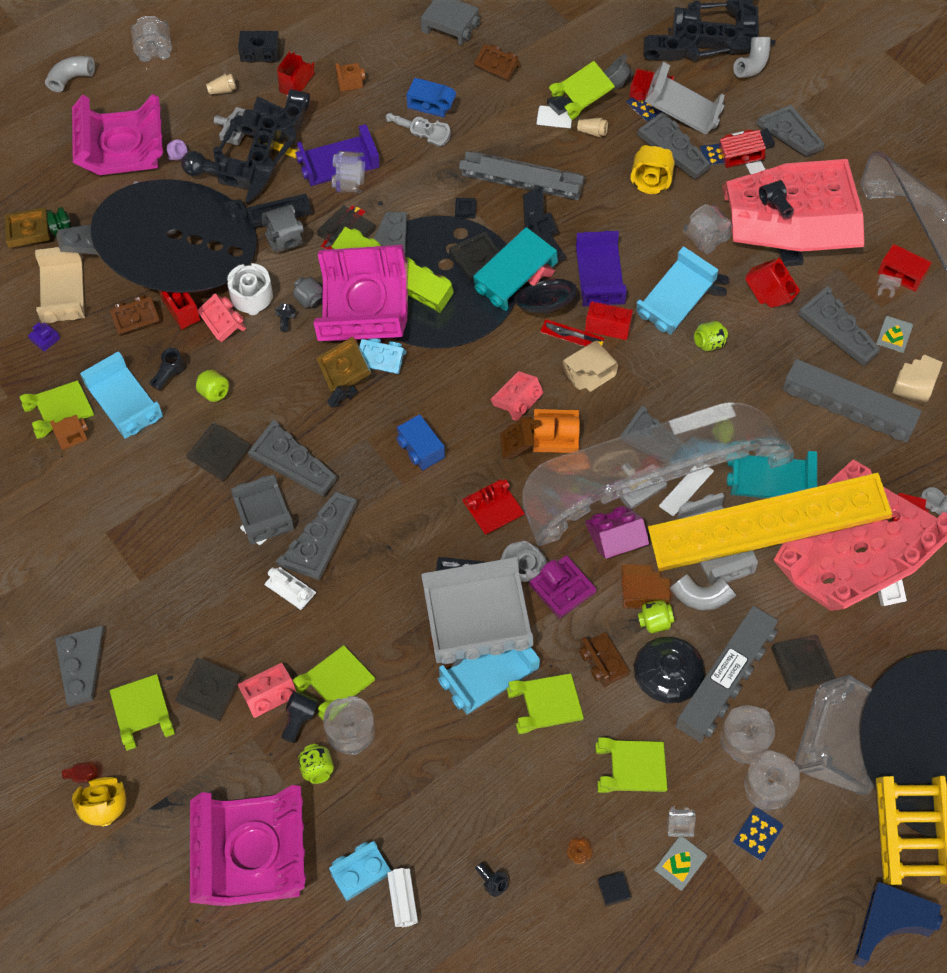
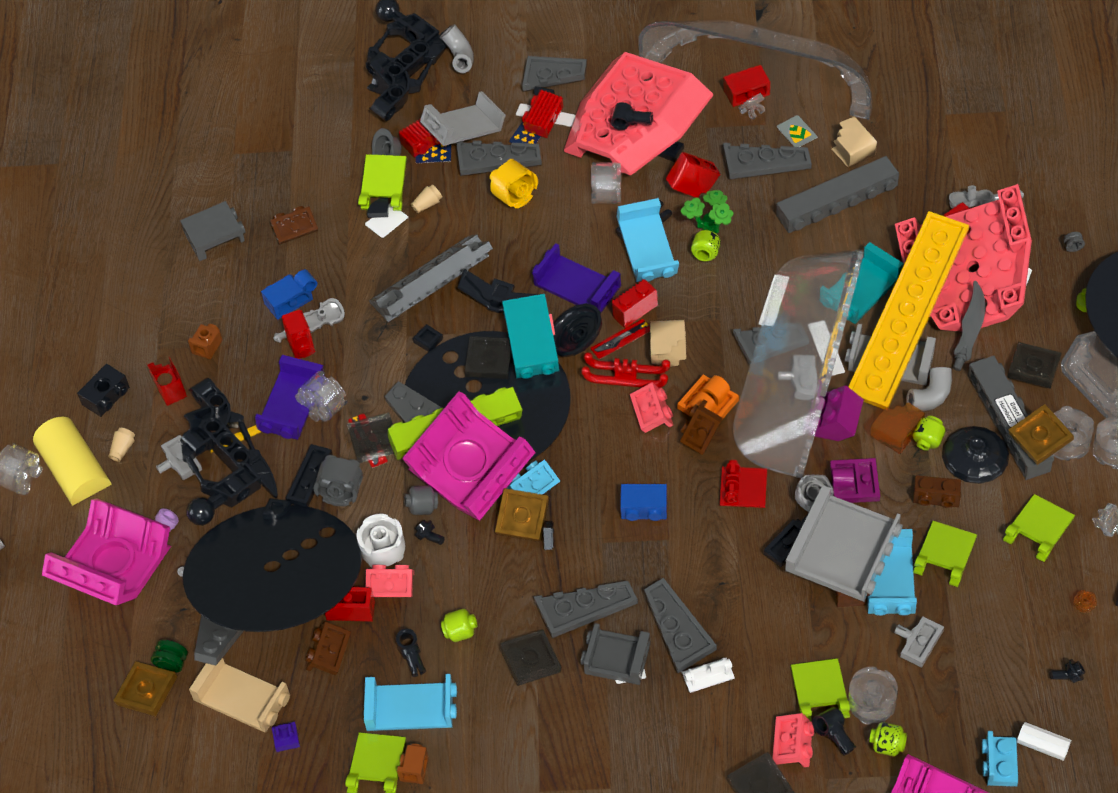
camera: 50 degrees left, 5 degrees down
(188, 65) = (70, 459): none -> light yellow brick
(394, 123) = (298, 334): none -> red brick
(436, 733) = (919, 640): none -> light grey plate
(538, 355) = (624, 372): none -> red piece
(716, 707) = (1041, 434): none -> pearl gold plate
(739, 321) = (711, 221): none -> bright green plant
(796, 584) = (971, 326): none -> dark grey sword

